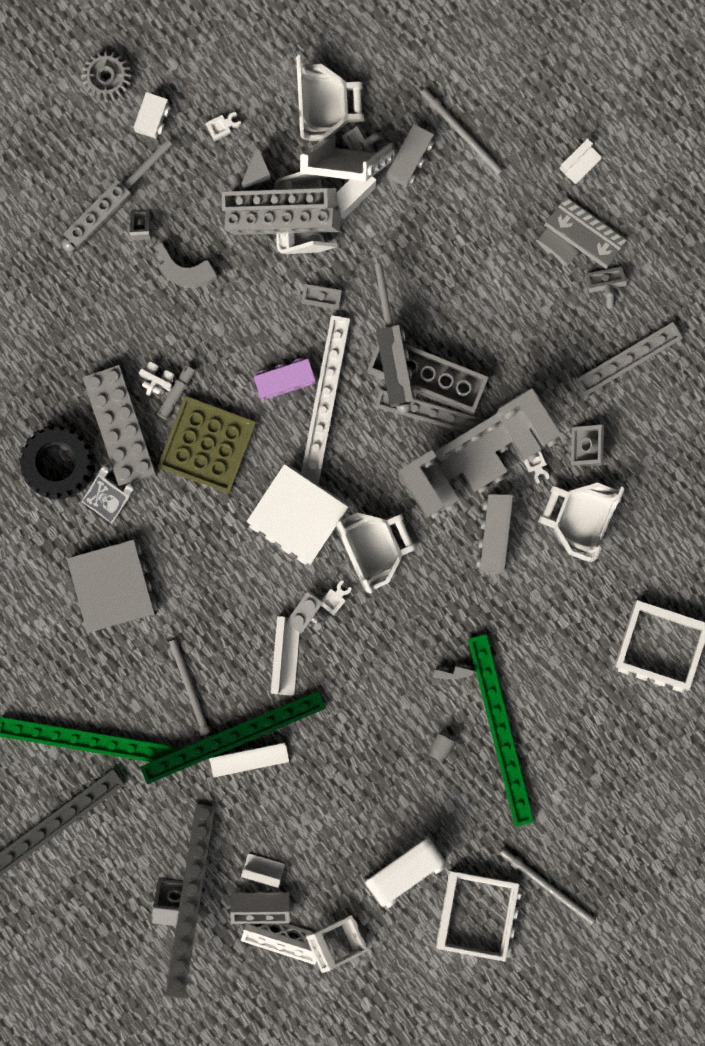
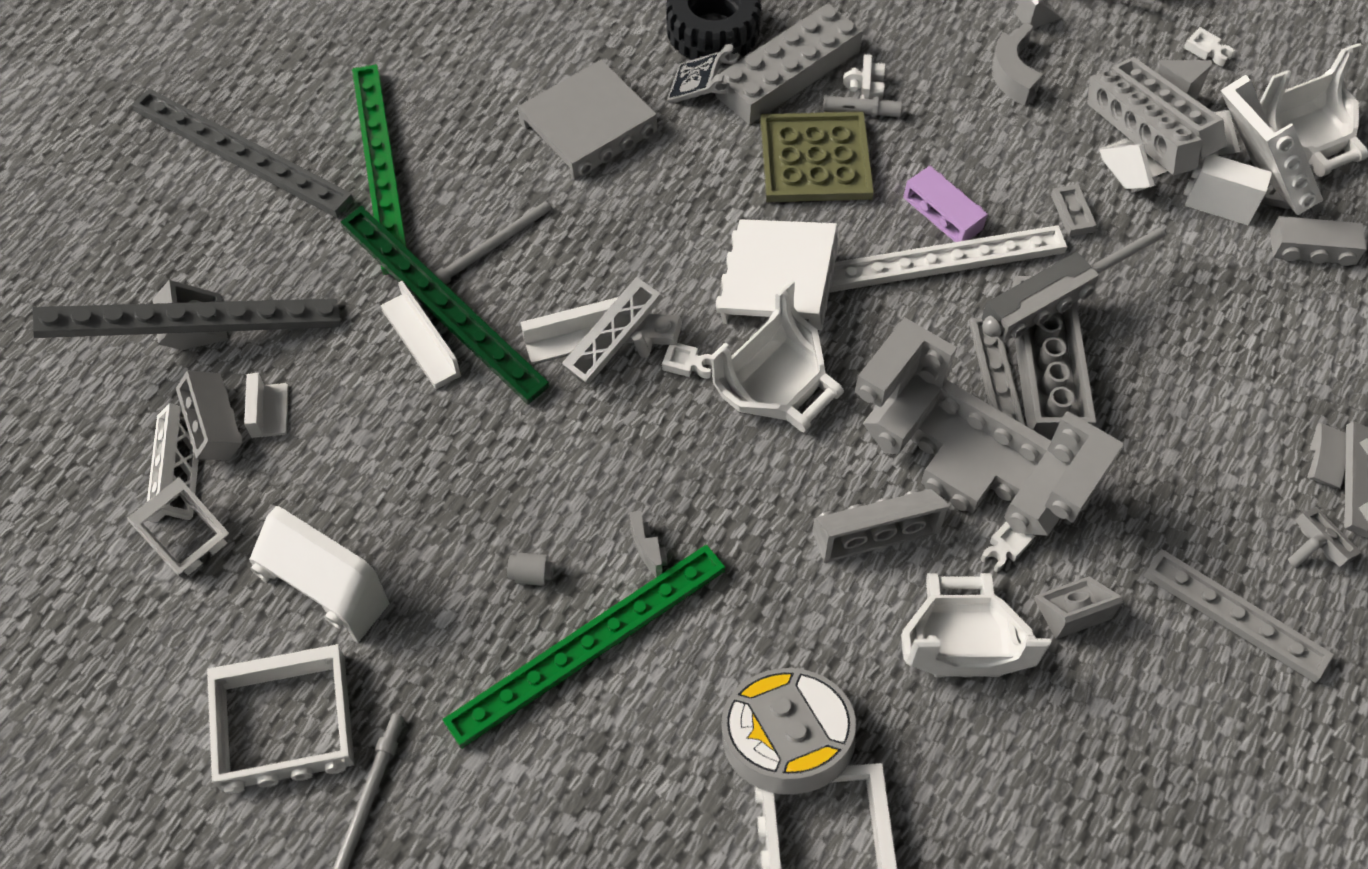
camera: 70 degrees right, 25 degrees down
(298, 638) = (612, 330): none -> light grey fence
(598, 641) = (788, 731): none -> piece

